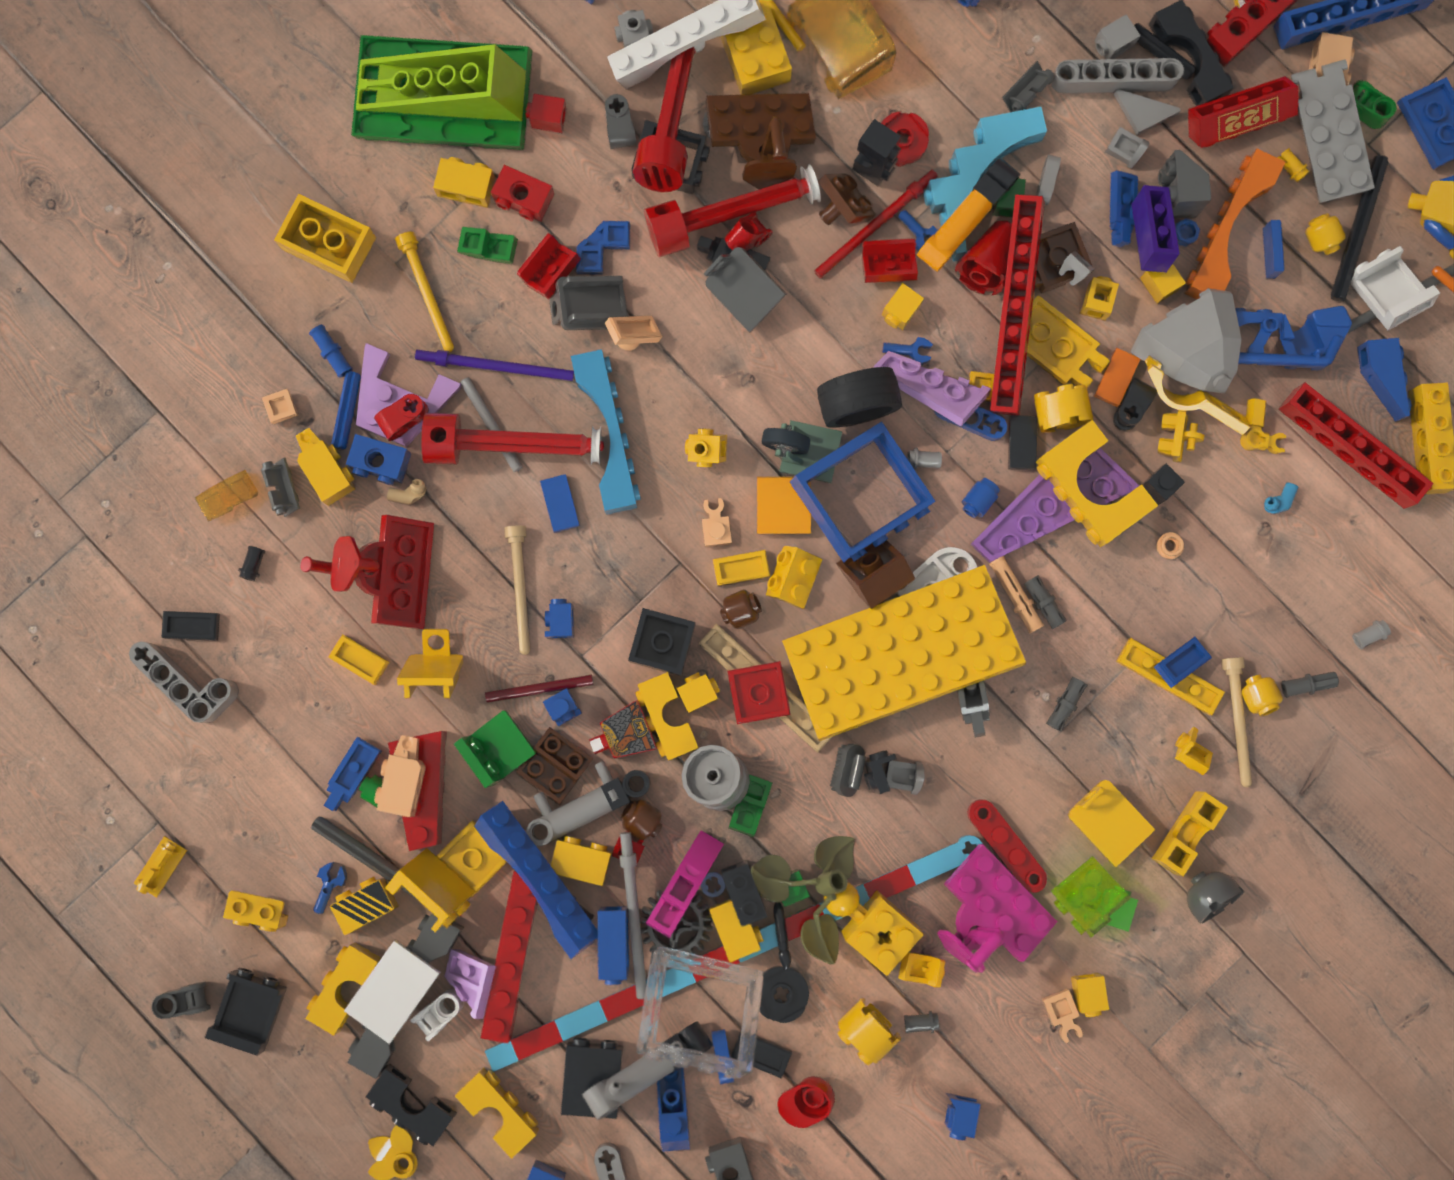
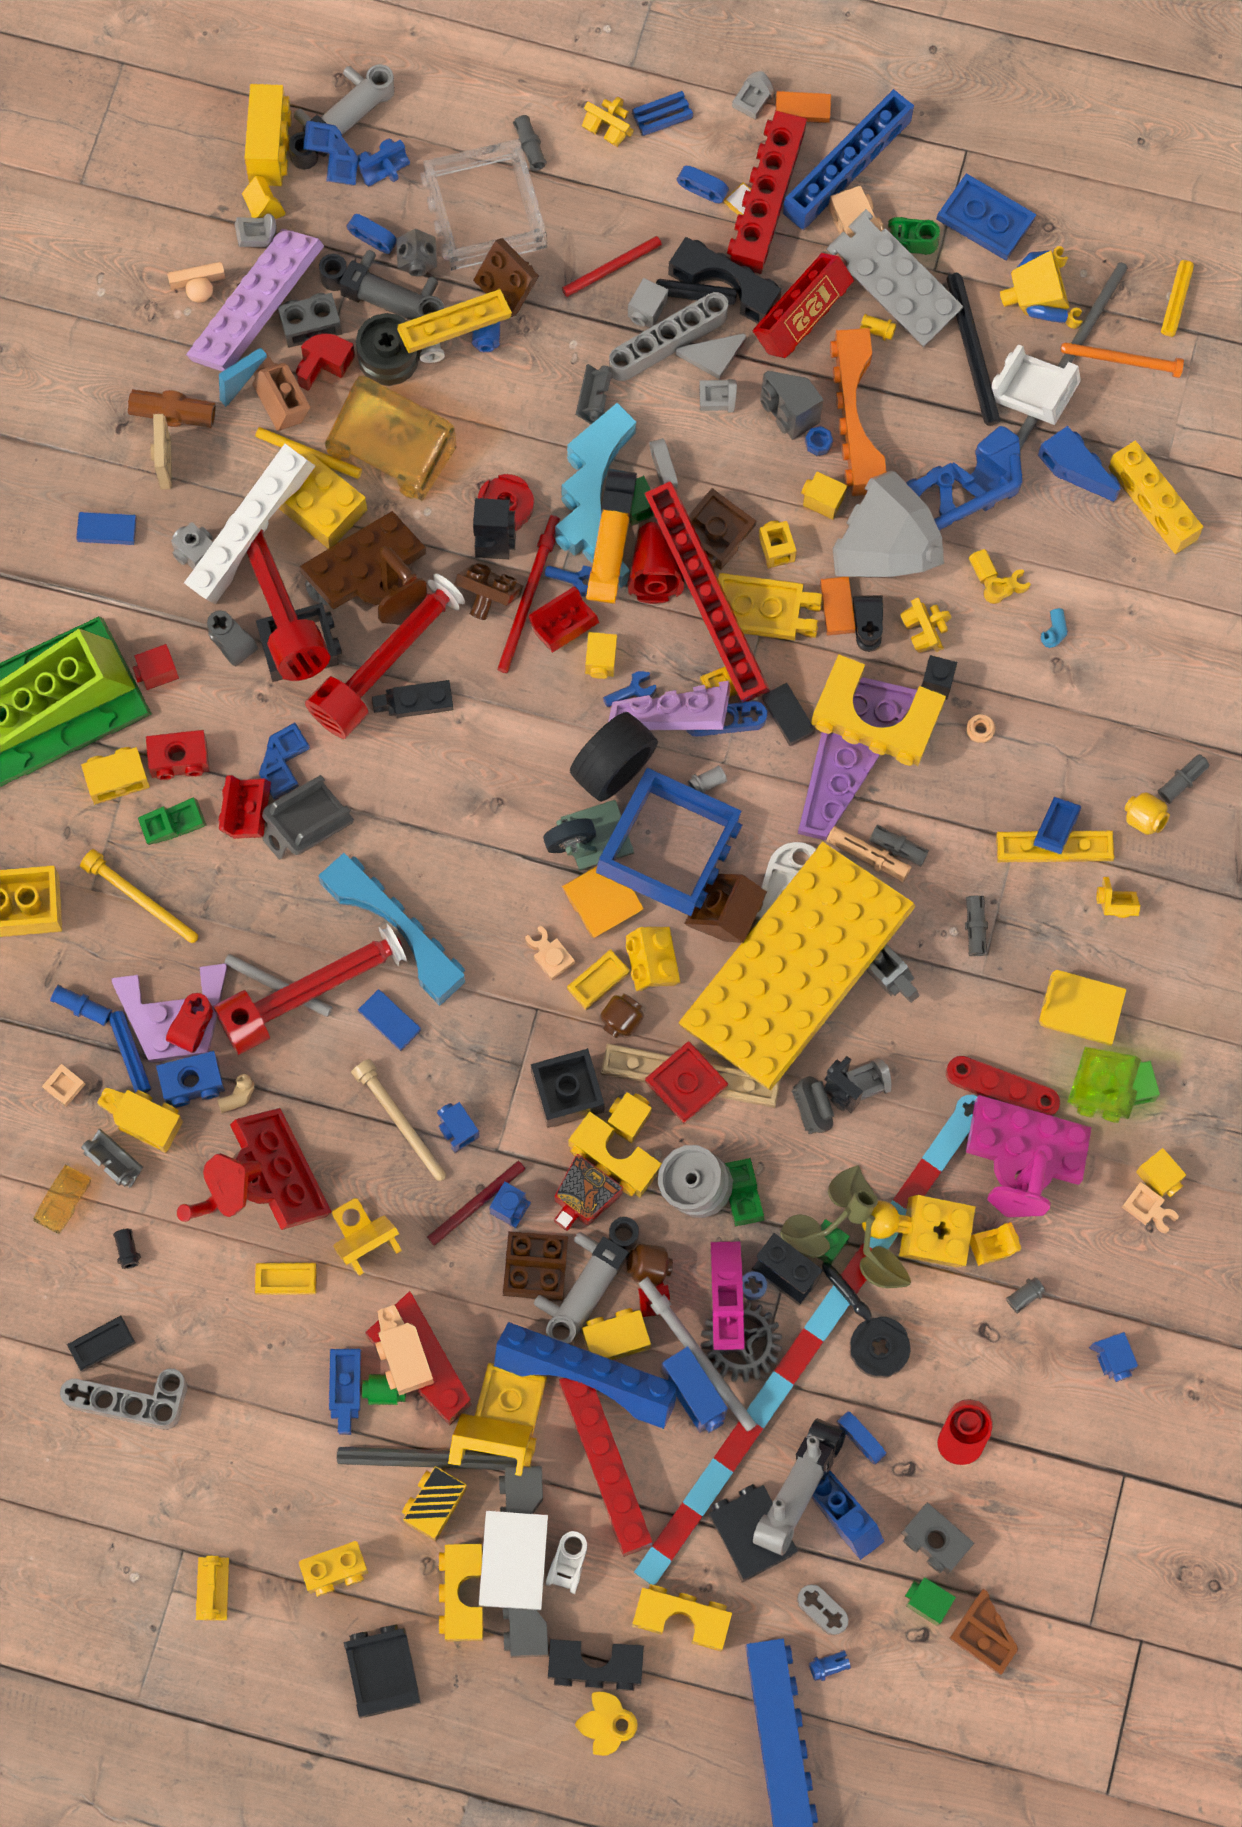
camera: 30 degrees left, 10 degrees down
(185, 1000) = (315, 1699): dark grey piece -> none
(328, 885) = (387, 1509): blue bar -> none
(443, 358) = (194, 950): dark purple bar -> none
(471, 980) = (580, 1508): lavender wing -> none
(495, 749) = (471, 1279): green bracket -> none
(633, 330) = (362, 820): light nougat tile -> none
(706, 447) = (507, 882): yellow brick -> none
(712, 968) = (805, 1356): clear window -> none
(736, 940) = (800, 1311): yellow brick -> none
(743, 287) = (443, 720): dark grey piece -> none
(748, 233) = (415, 670): red piece -> none
(767, 1056) = (896, 1415): black tile -> none
(868, 1032) = (980, 1328): yellow brick -> none
(980, 498) = (781, 786): blue brick -> none
(1063, 409) = (806, 661): yellow brick -> none
(1078, 265) = (739, 523): light grey tile -> none
(1122, 194) = (747, 450): blue hinge -> none
(1155, 229) = (789, 453): dark purple brick -> none
(1196, 819) = (1158, 960): yellow arch -> none
(1197, 400) = (924, 582): yellow piece -> none
(1212, 894) = (1214, 1017): dark grey cylinder -> none
(1233, 668) = (1106, 804): tan piece -> none
(1273, 249) = (907, 411): blue tile -> none
(1325, 233) = (945, 371): yellow head -> none
(1355, 446) = (1089, 543): red brick -> none
(1377, 631) = (1214, 696): light grey pin -> none

